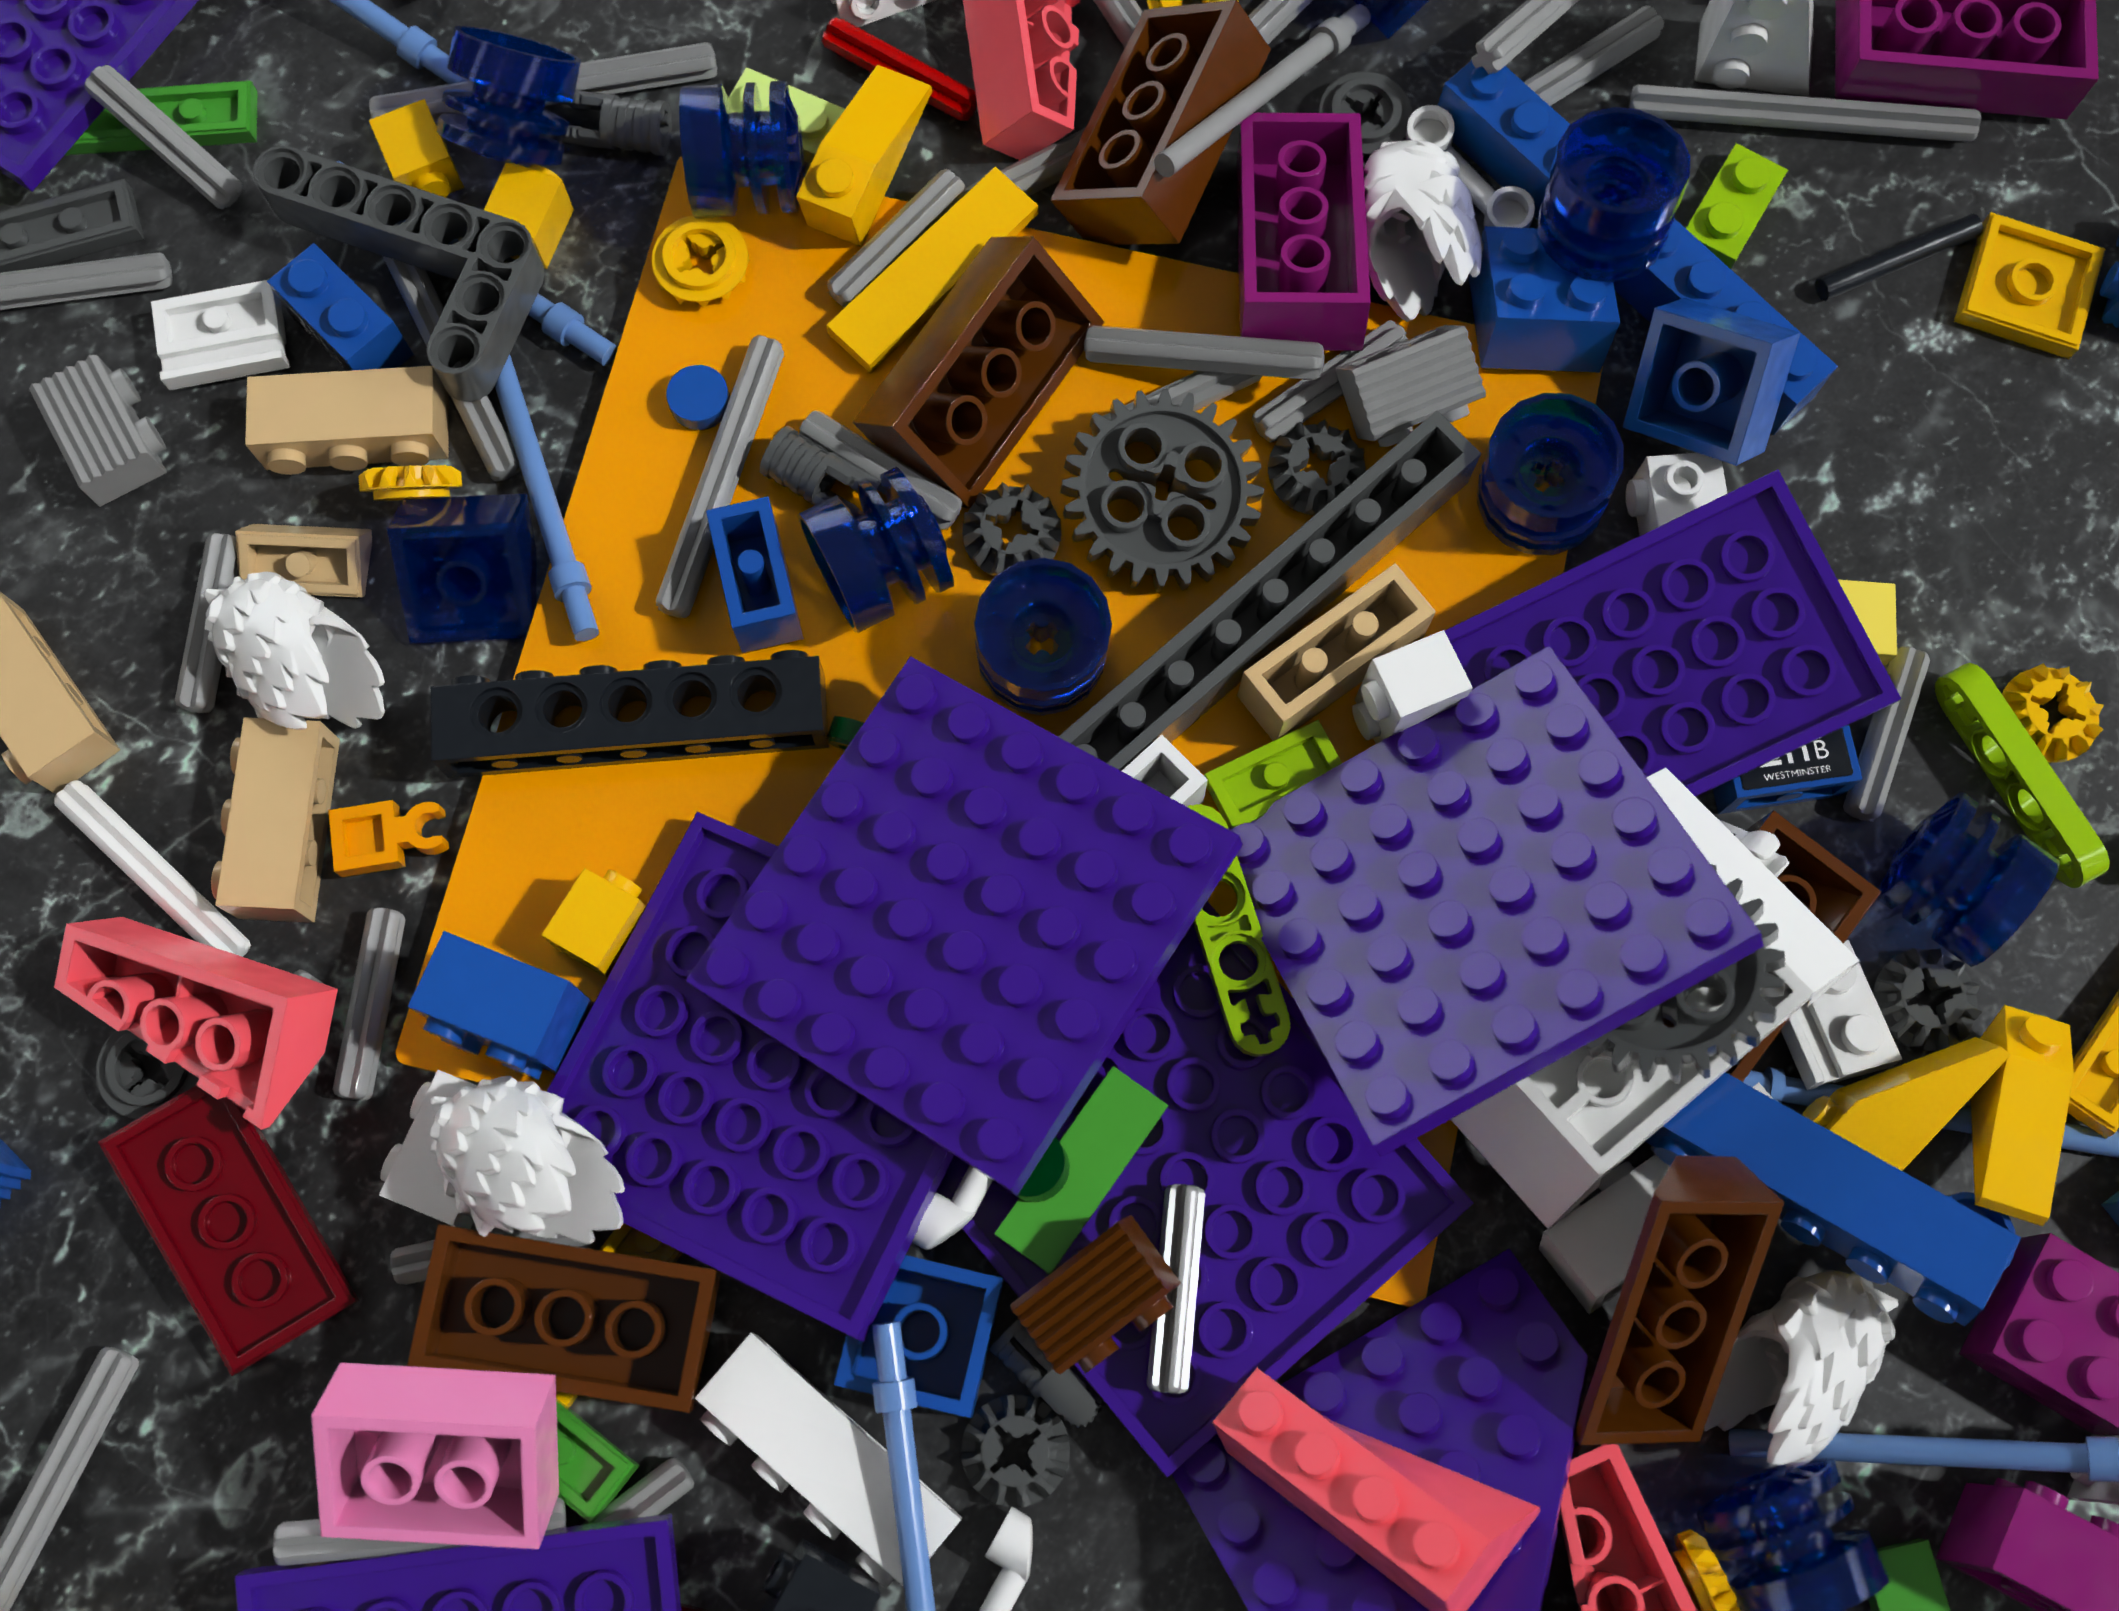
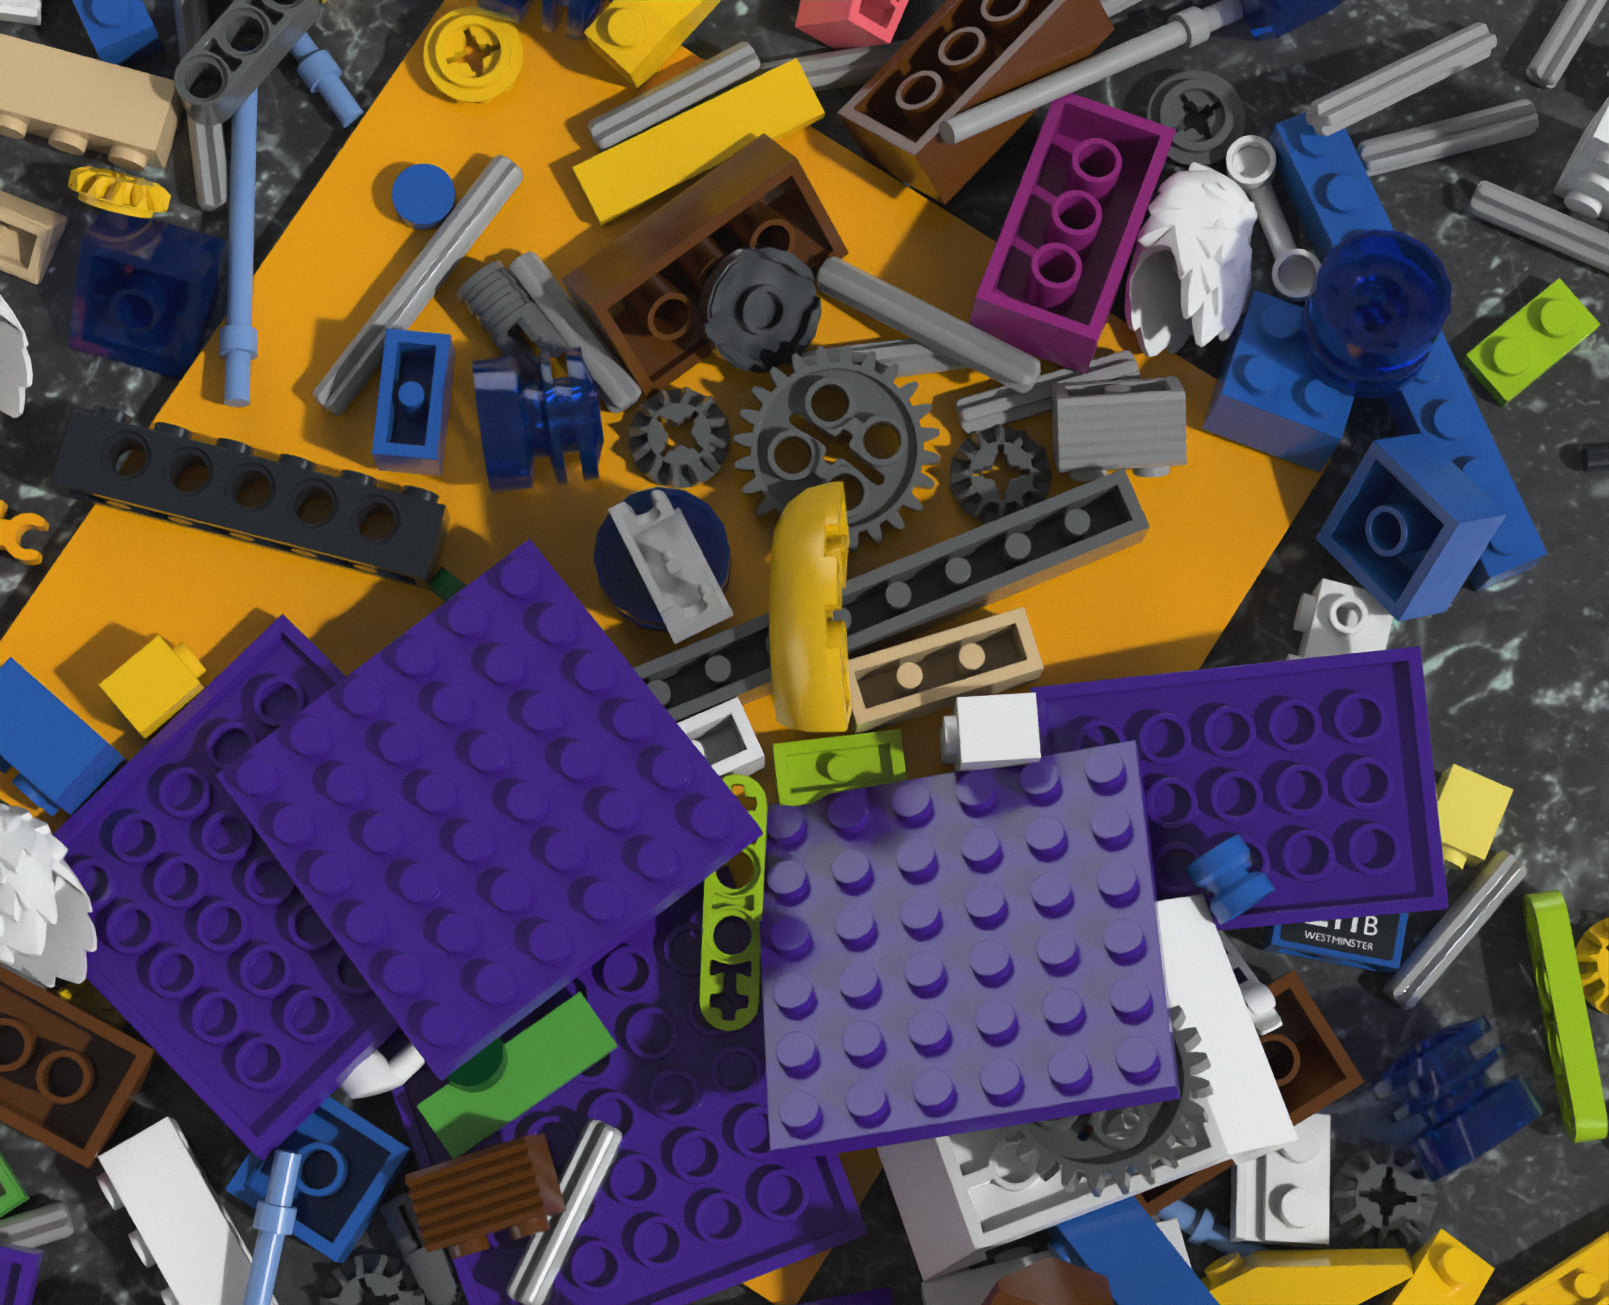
camera: 15 degrees right, 5 degrees up
(1043, 388) = (759, 308): none -> black tile
(1057, 632) = (672, 567): none -> light grey hinge
(1187, 615) = (804, 590): none -> yellow brick
(1553, 442) = (1224, 532): clear blue wheel -> none
(1689, 743) = (1227, 876): none -> blue wheel

